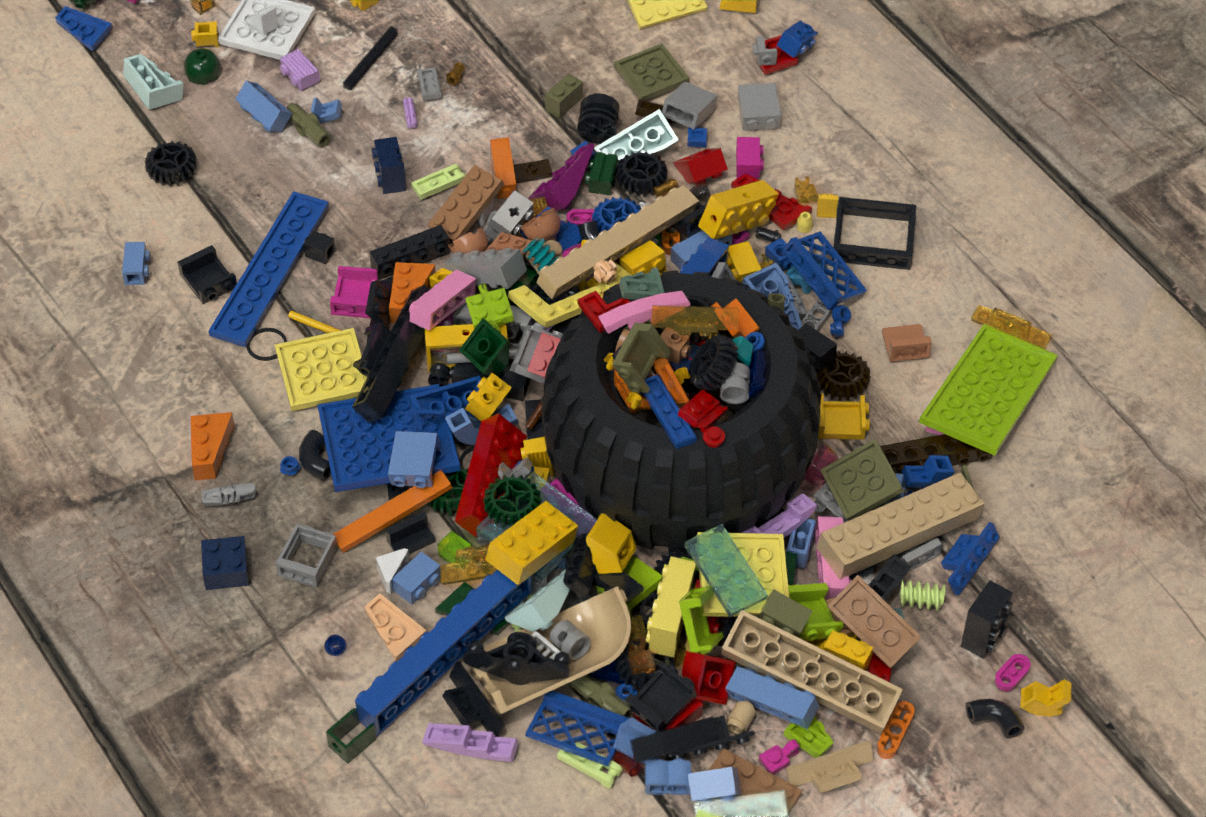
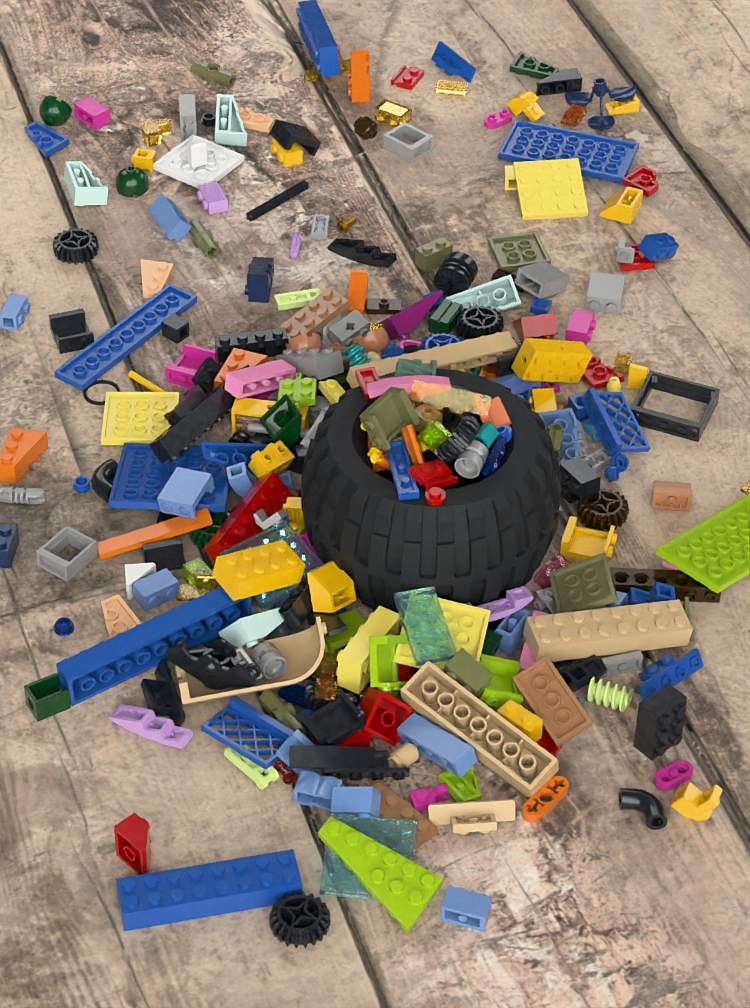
camera: 15 degrees right, 10 degrees down
(271, 184) = (154, 276): none -> light nougat wing
(326, 111) = (222, 232): medium blue bracket -> none
(489, 109) = (358, 252): none -> black slope
(519, 491) = (243, 532): dark green gear -> none
(690, 365) = (433, 434): none -> clear neon green slope
(767, 234) = (574, 389): black pin -> none

